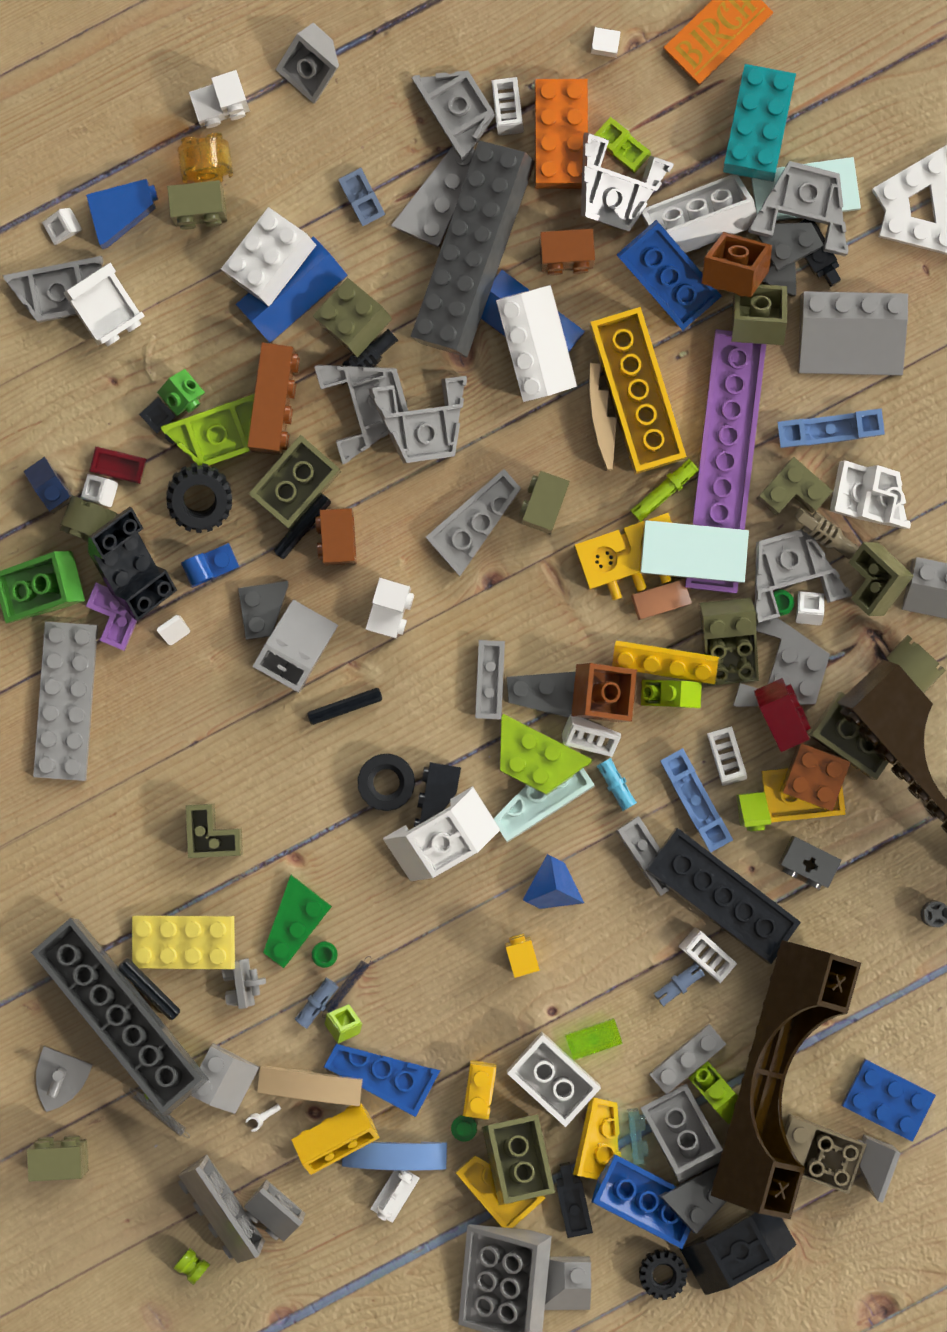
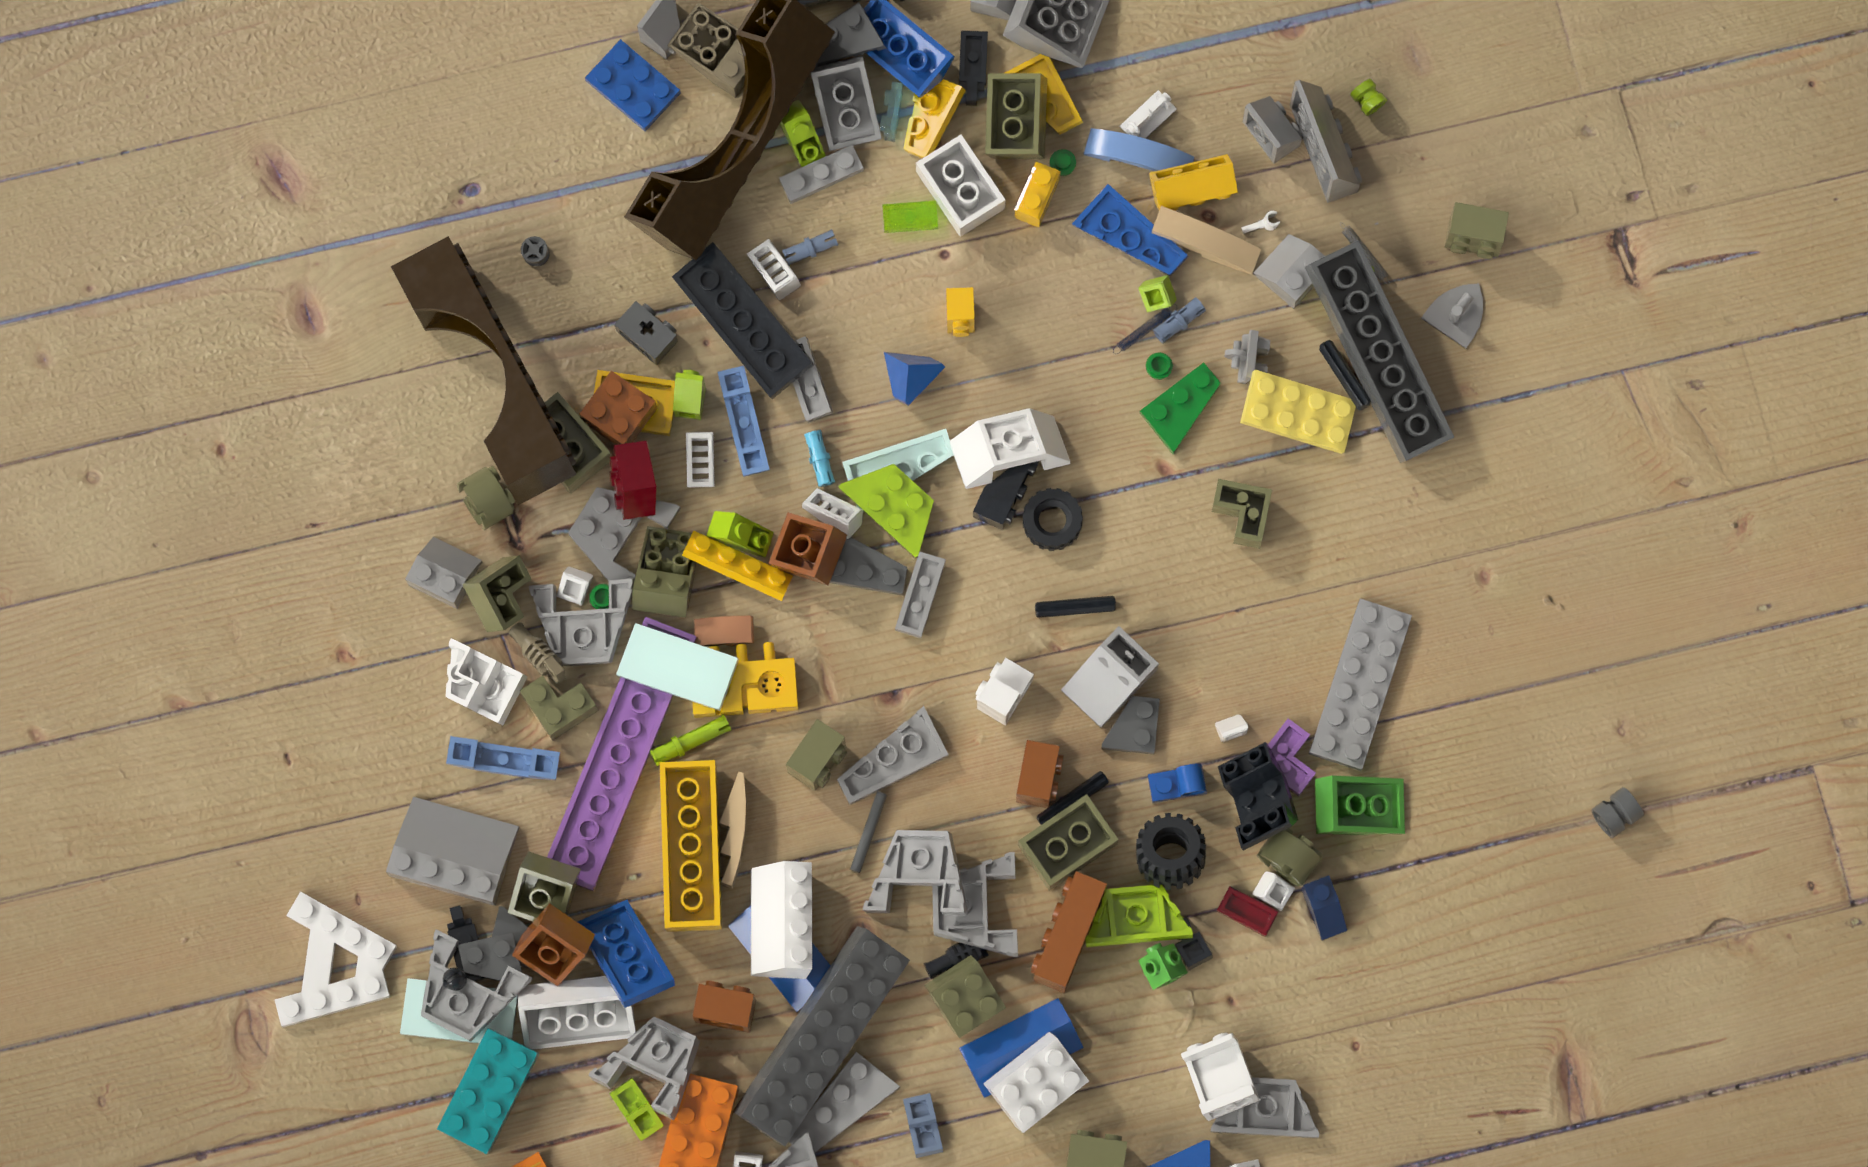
camera: 160 degrees left, 10 degrees down
(480, 446) = (868, 832): none -> dark grey bar
(815, 206) = (457, 983): none -> black hinge

